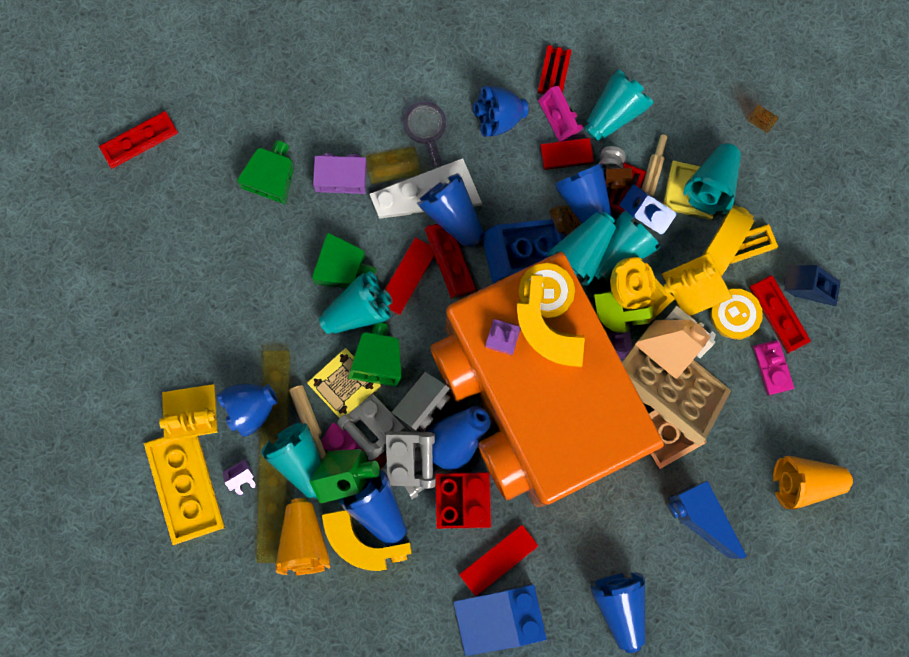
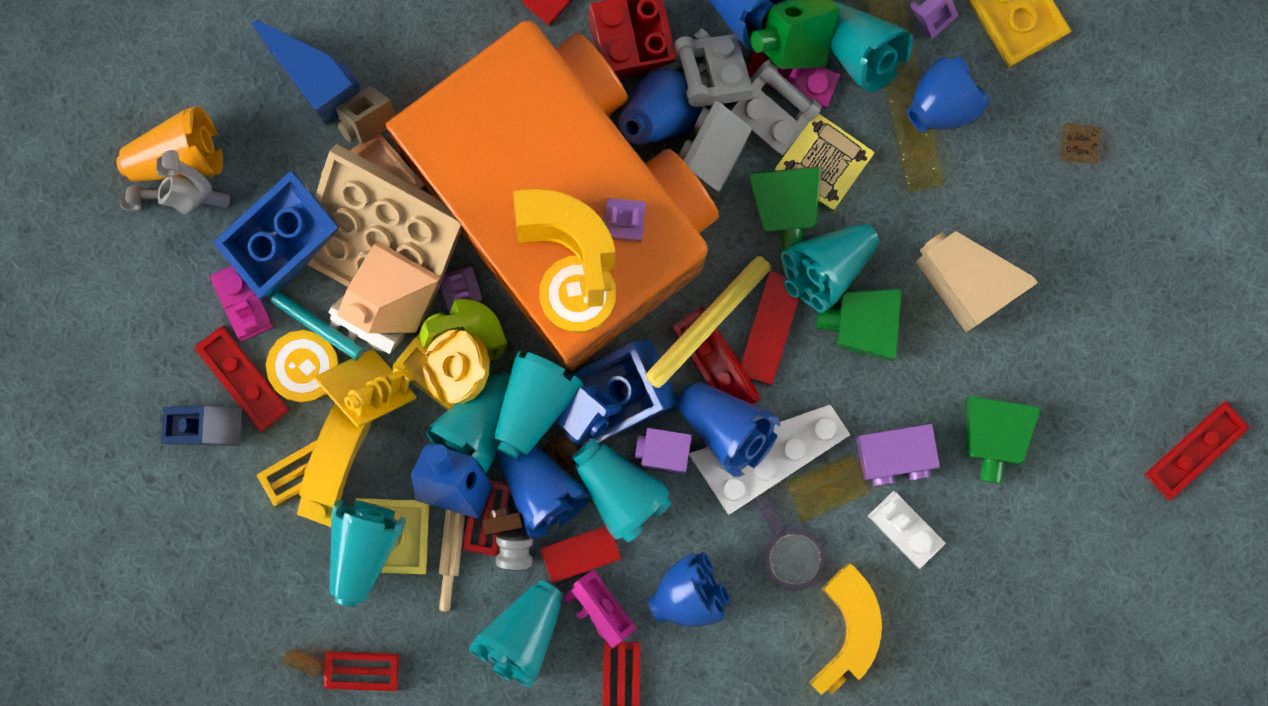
camera: 170 degrees right, 5 degrees up
(159, 361) = (1080, 143): none -> clear orange tile
(189, 412) = (1022, 81): yellow hinge -> none
(261, 273) = (971, 278): none -> tan slope
(307, 416) = (862, 105): tan axle -> none
(346, 127) = (906, 529): none -> white plate
(389, 68) = (863, 629): none -> yellow arch
(451, 282) = (708, 322): none -> light yellow axle
(499, 201) = (663, 451): none -> medium lavender brick
(533, 180) = (620, 489): none -> teal cone
(546, 235) = (588, 414): none -> blue brick
(668, 478) = (364, 115): none -> dark tan brick
(721, 117) = (330, 669): none -> red tile
(723, 338) = (317, 325): none -> teal bar
(747, 399) = (277, 236): none -> blue slope
(812, 450) = (175, 191): none -> light grey piece

